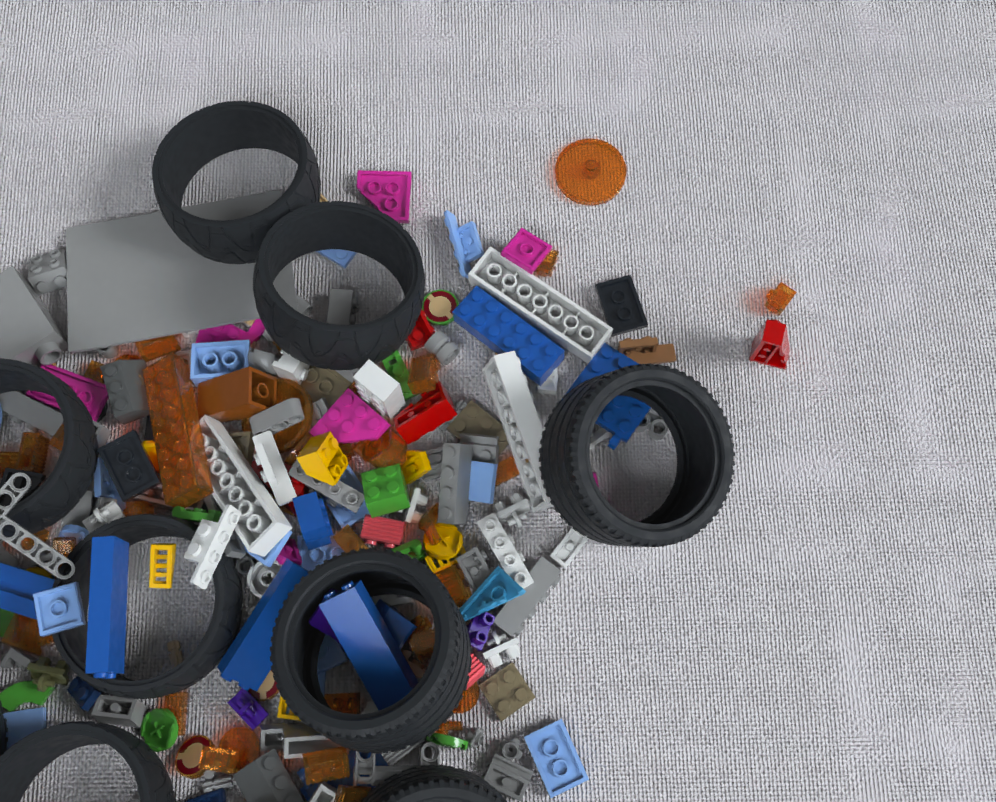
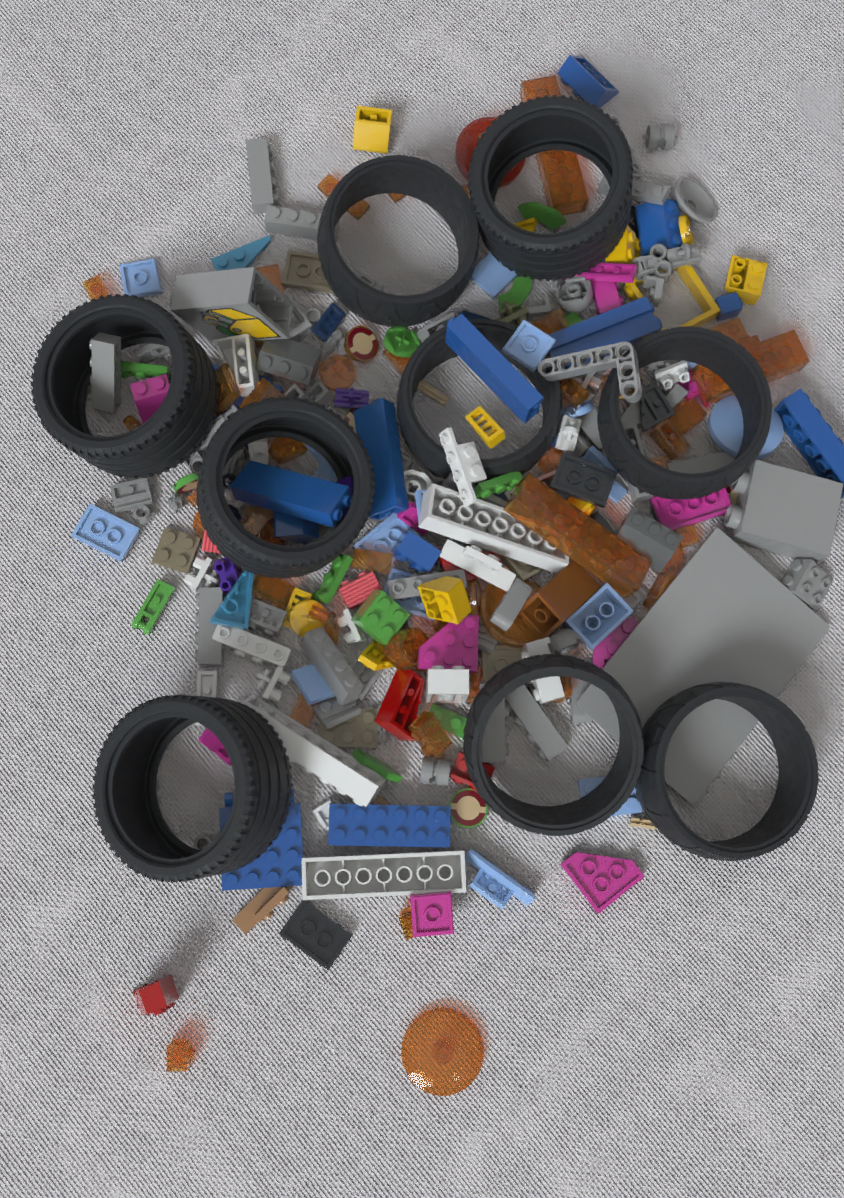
camera: 135 degrees right, 5 degrees up
(221, 759) = (338, 353): clear orange slope -> none
(481, 385) = (376, 765): none -> bright green tile
(561, 655) = (153, 606): none -> bright green plate

